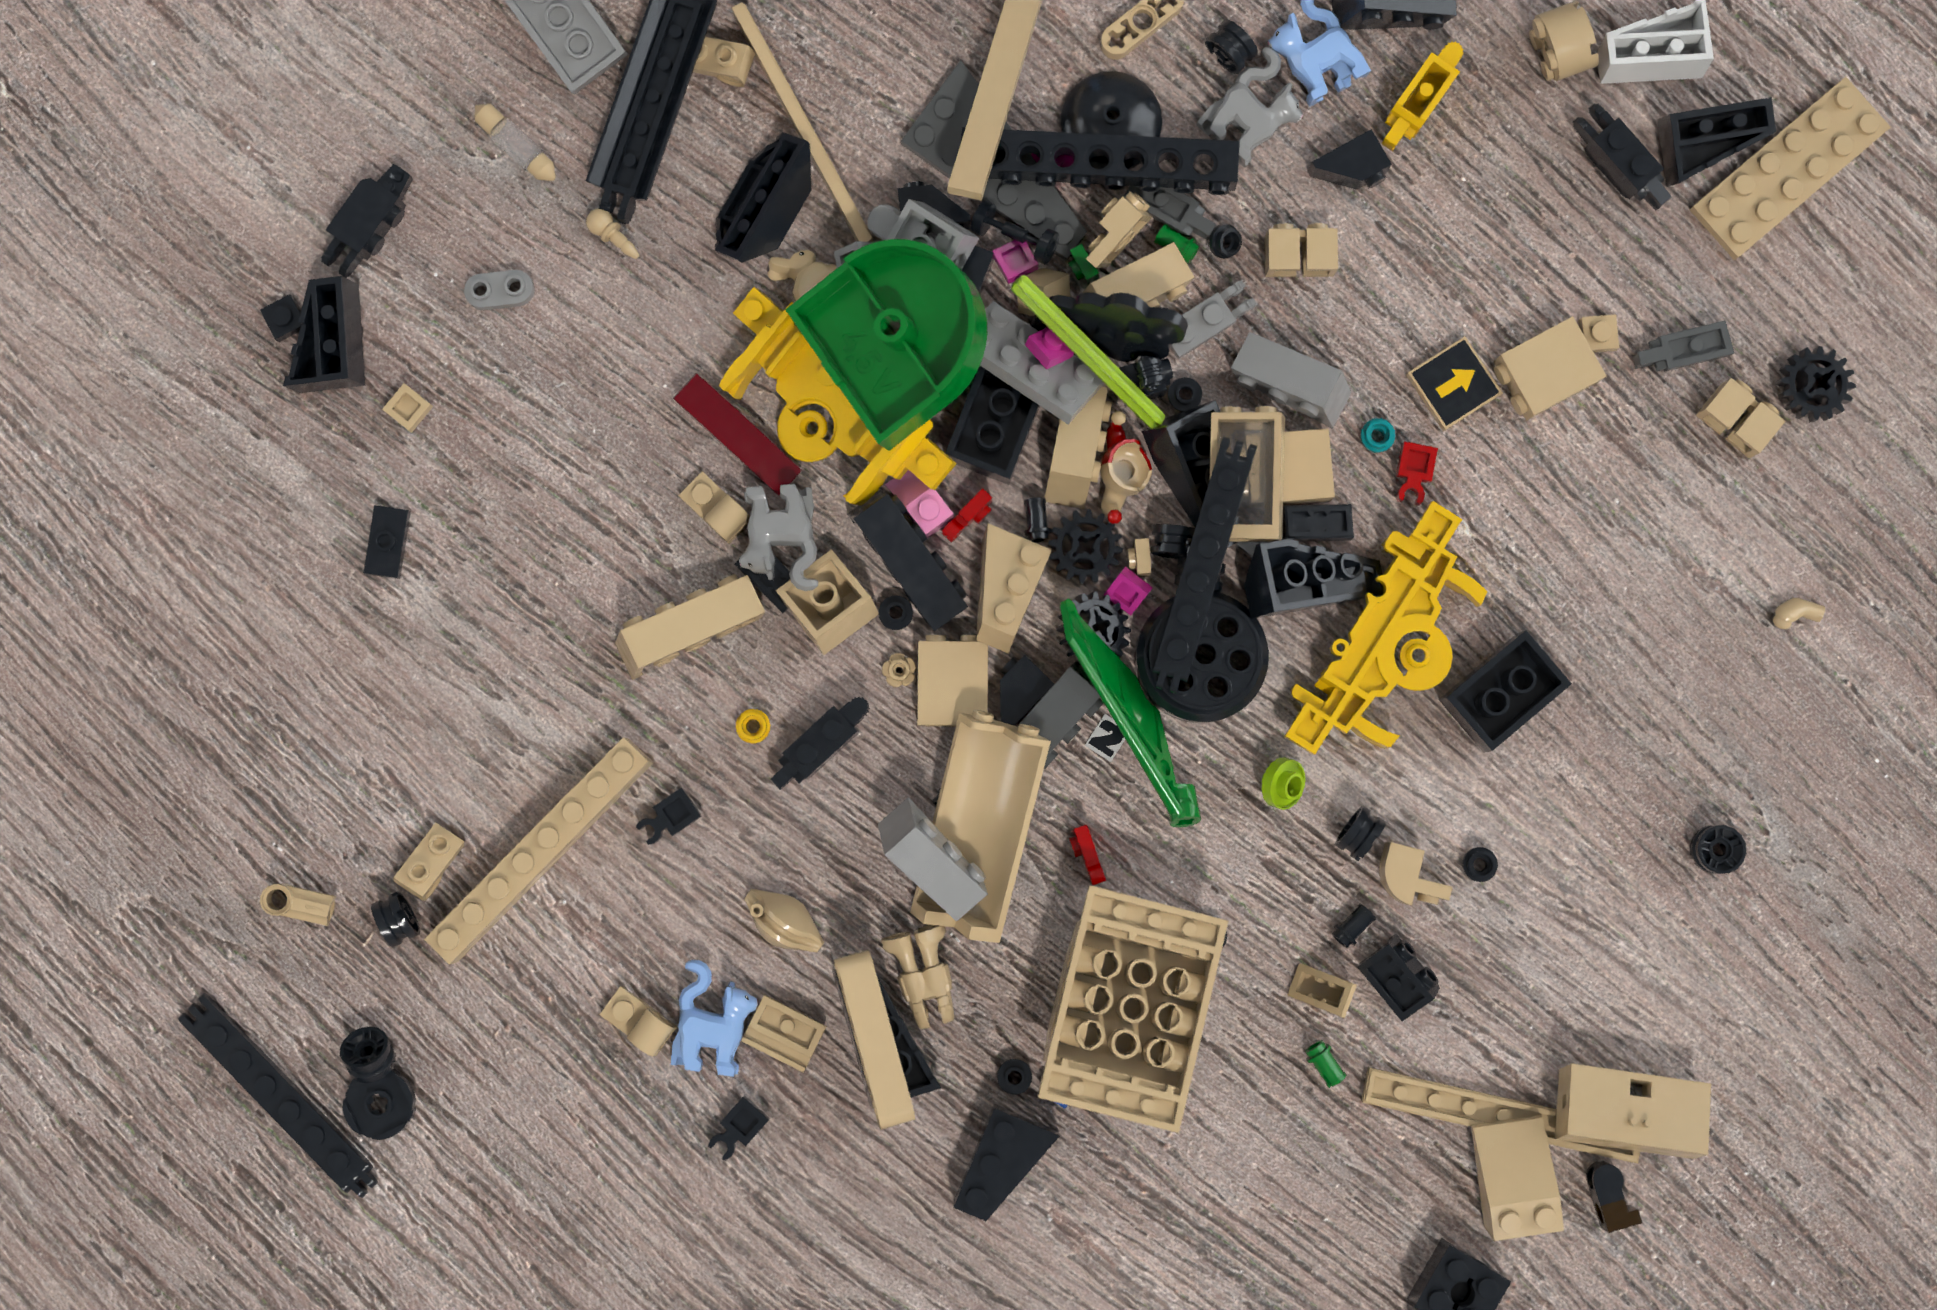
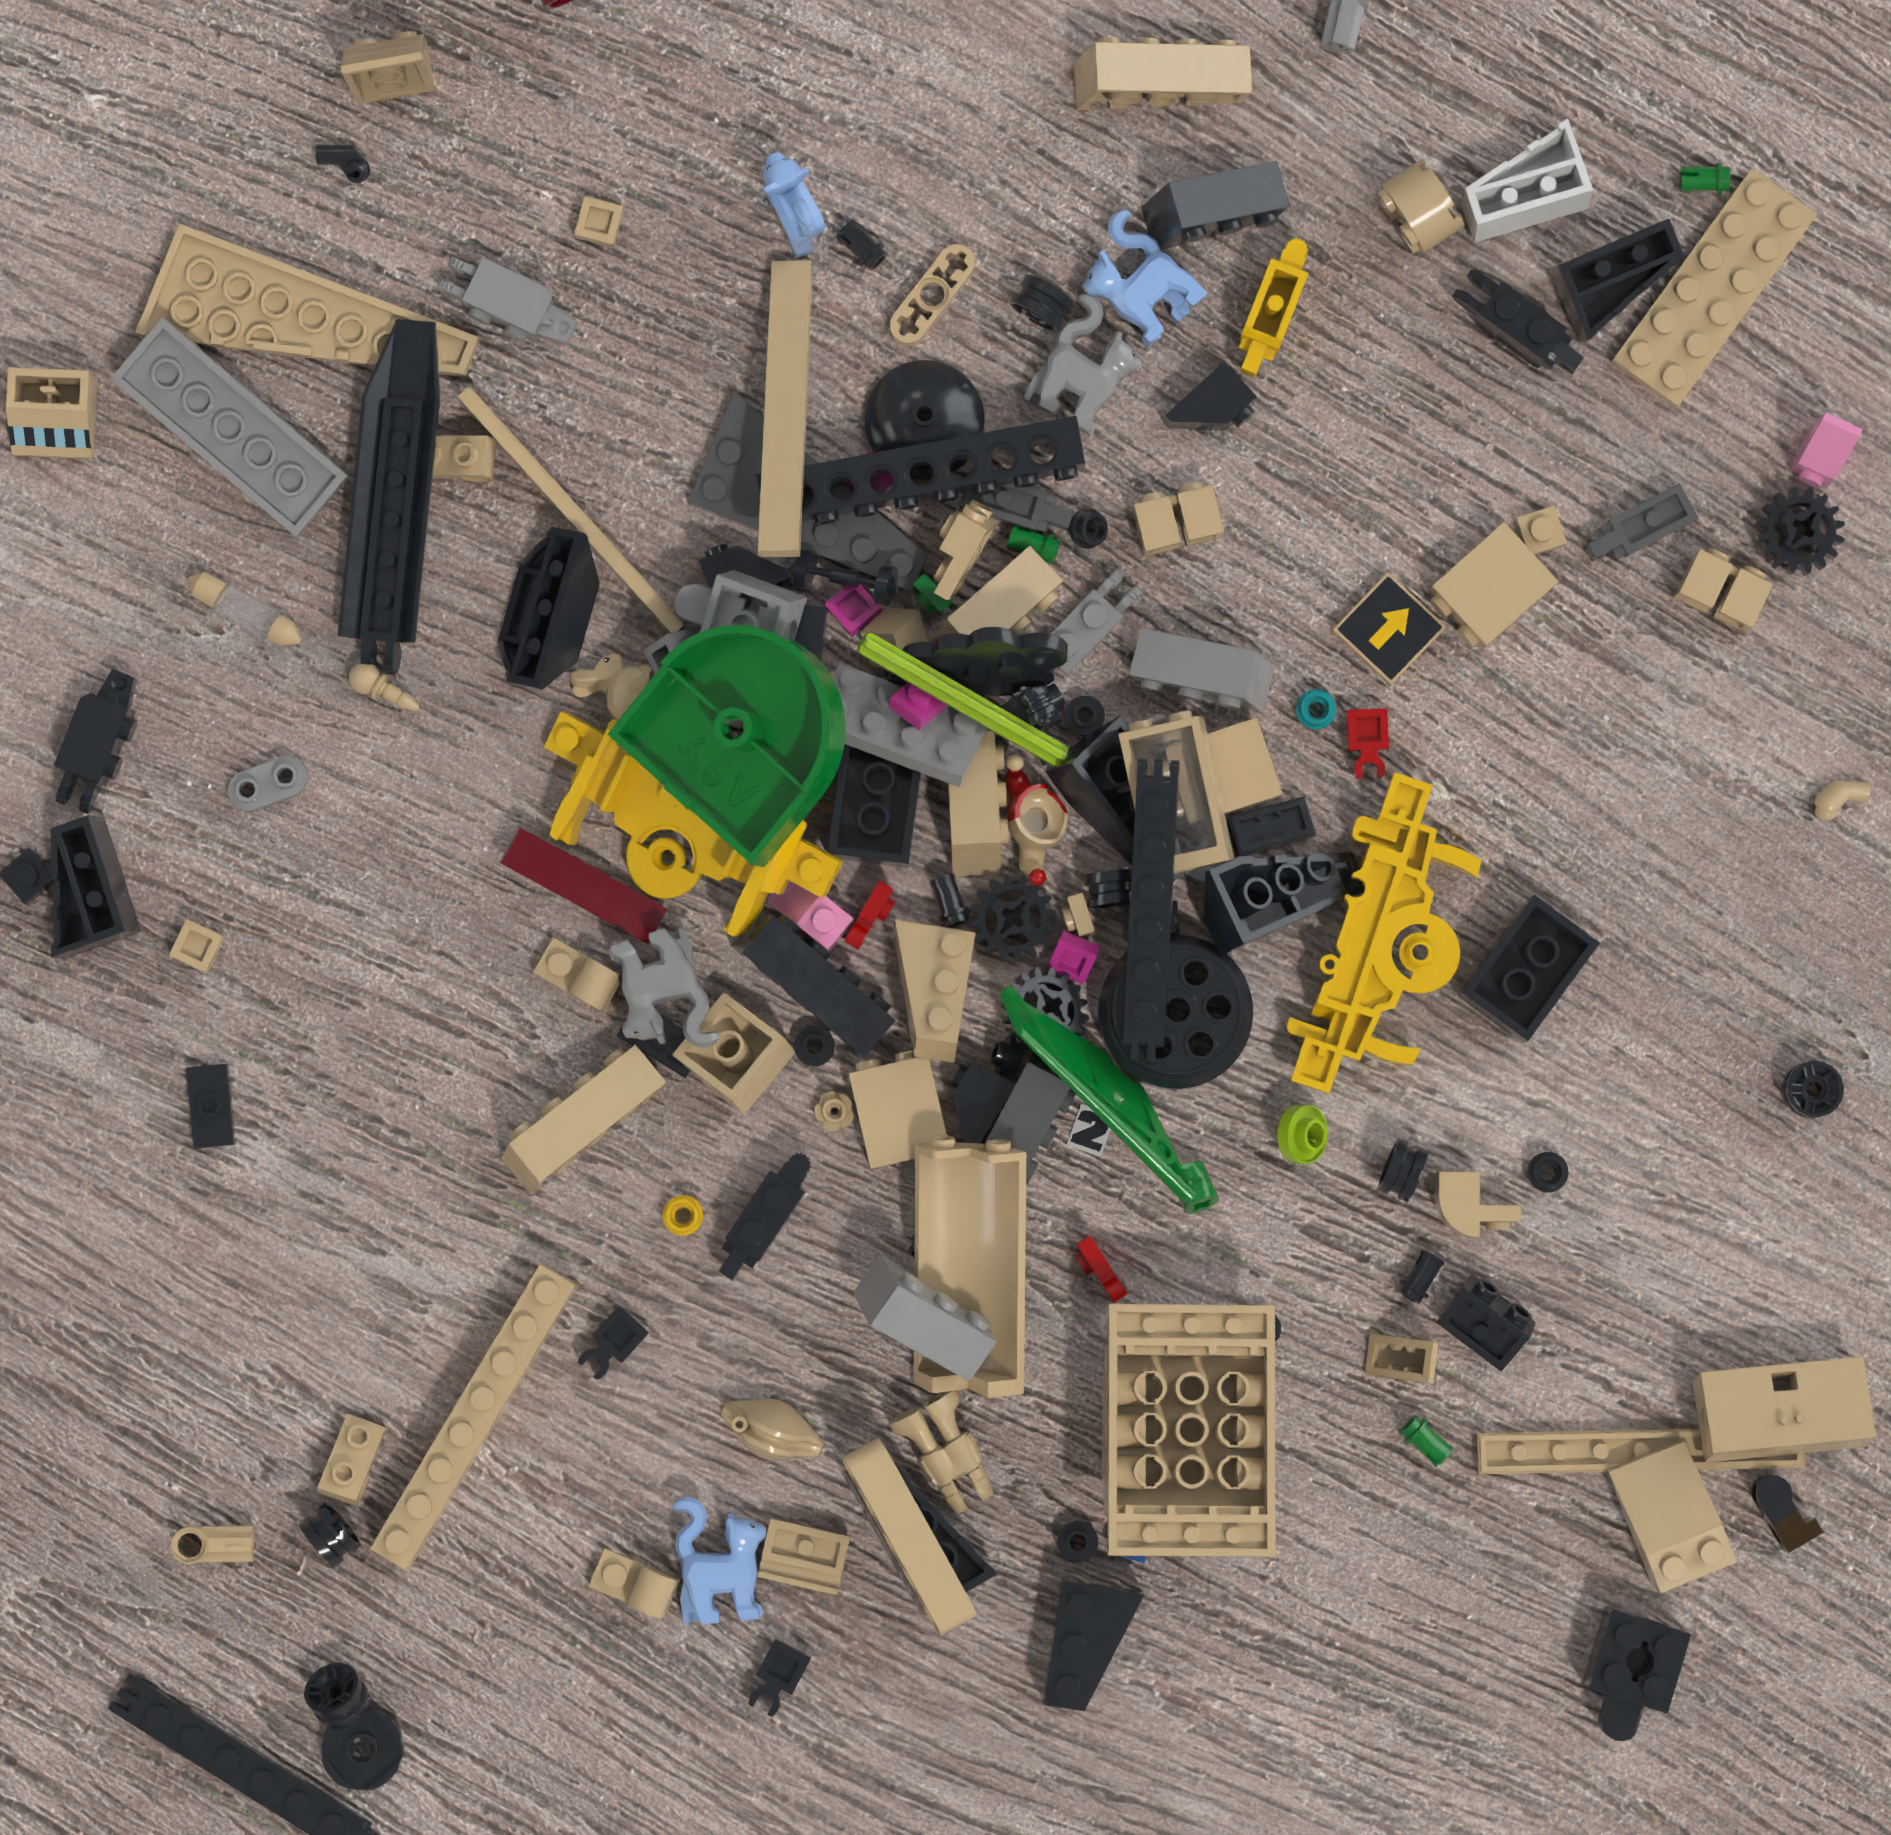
camera: 15 degrees left, 0 degrees up
(1053, 659) = (1007, 1056): none -> black plate
(1804, 76) = (1705, 178): none -> green pin
(1855, 320) = (1825, 450): none -> bright pink slope

